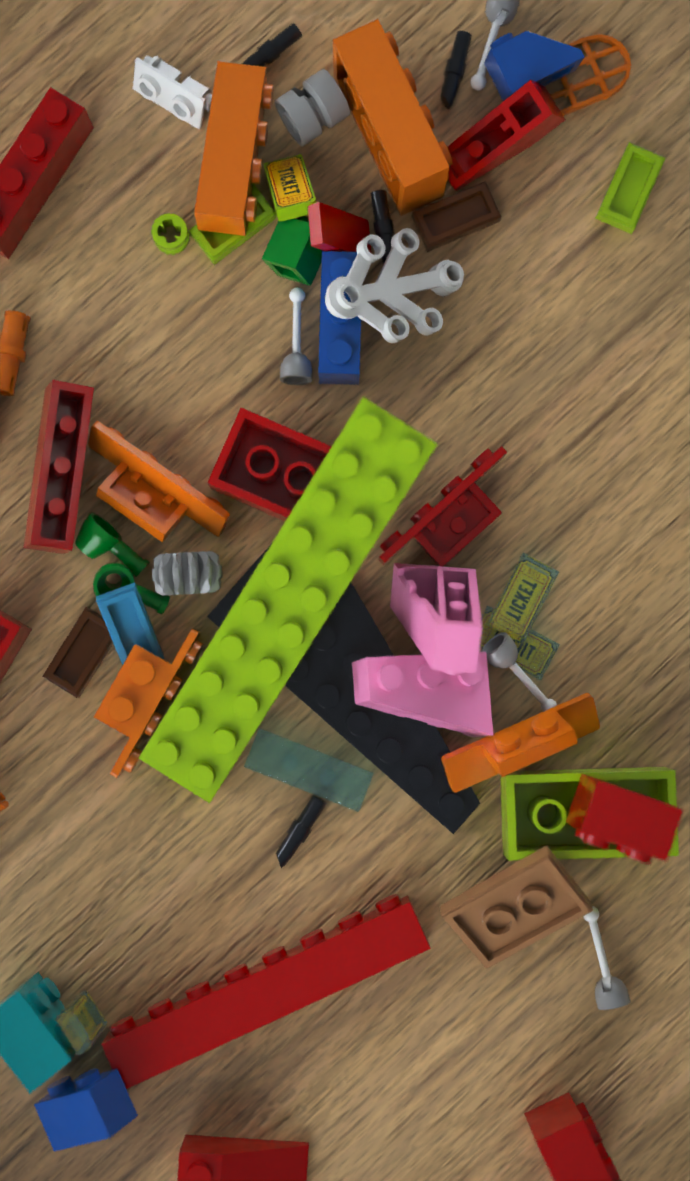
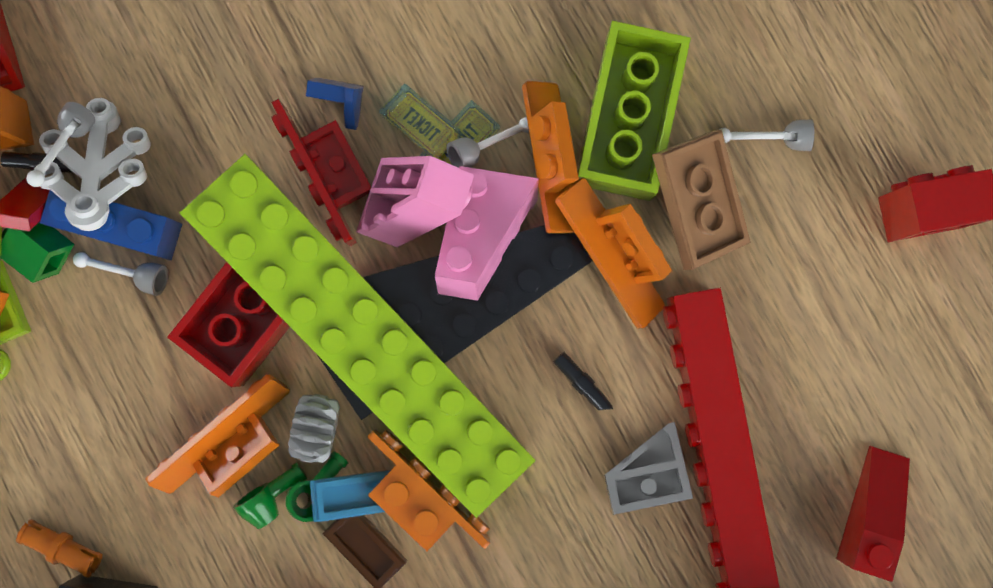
camera: 75 degrees left, 0 degrees up
(58, 467) = (179, 526): red brick -> none
(223, 922) = (650, 475): none -> light grey wing
(308, 769) = (528, 360): clear light blue tile -> none
(429, 256) = (74, 122): none -> hinge
(442, 835) = (619, 250): none -> orange bracket
(456, 216) = (45, 88): reddish brown tile -> none
(531, 508) = (340, 92): none -> blue tile
(620, 816) = (648, 64): red brick -> none

